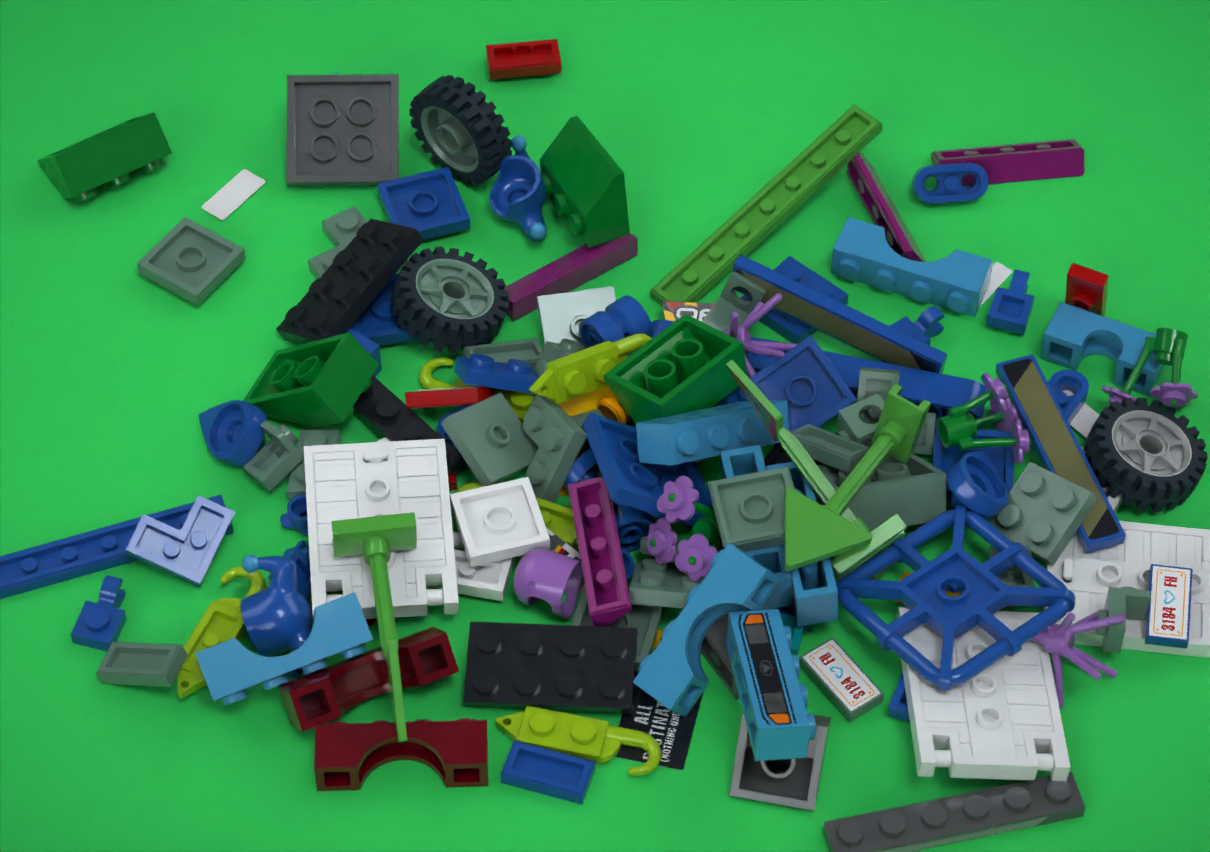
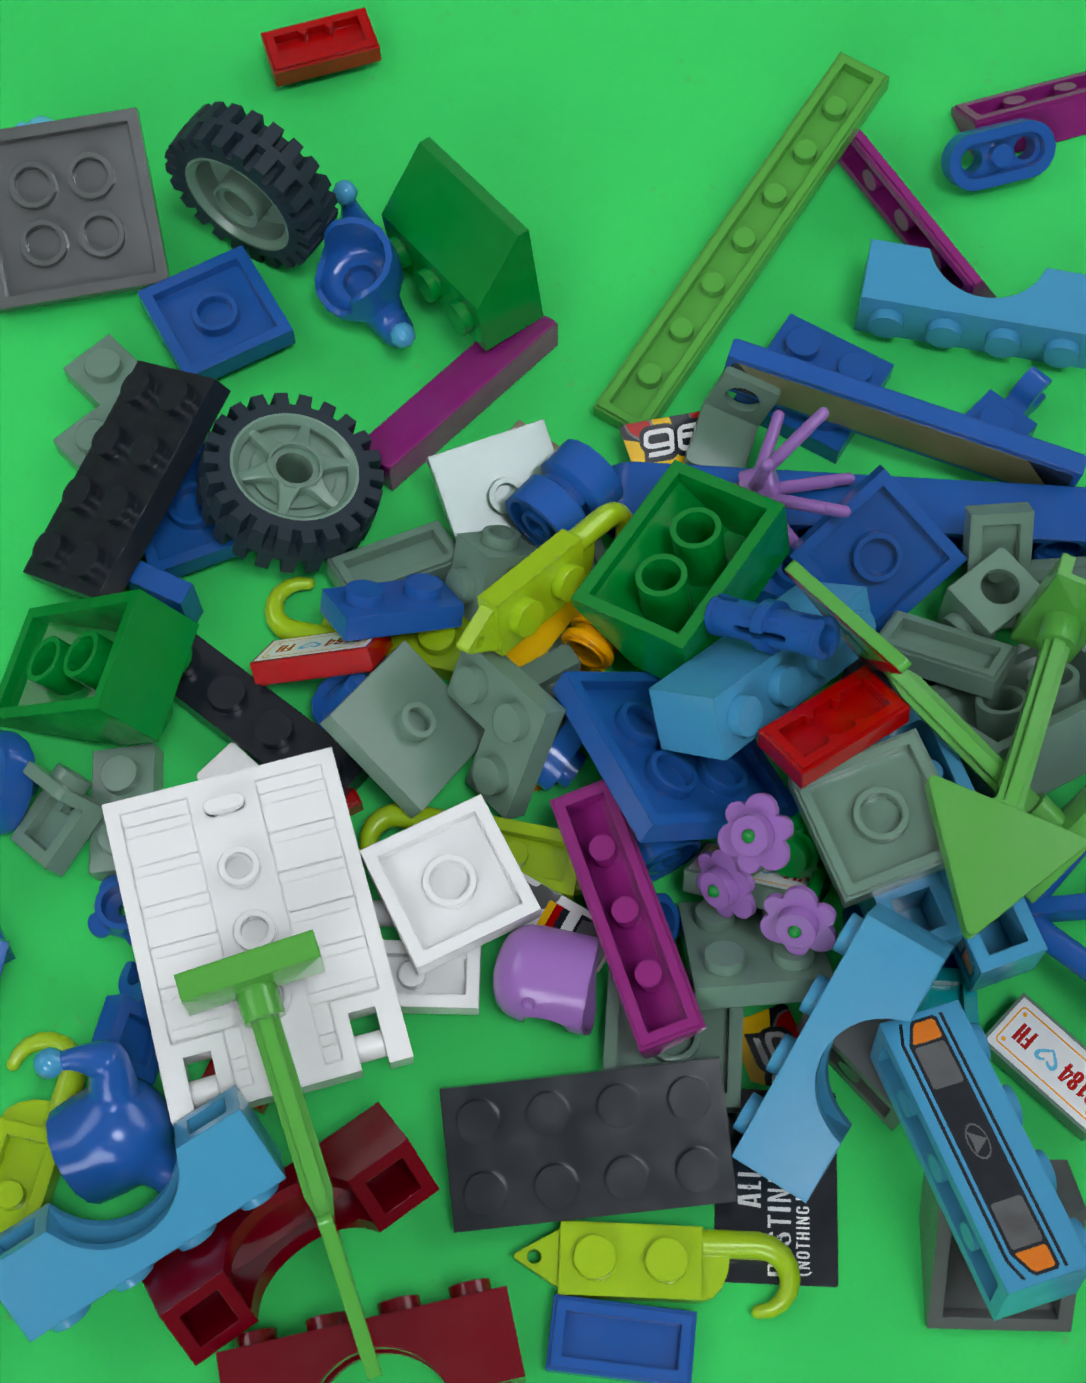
camera: 10 degrees left, 15 degrees up
(714, 398) = (772, 626): none -> blue pin
(739, 457) = (833, 726): none -> red plate

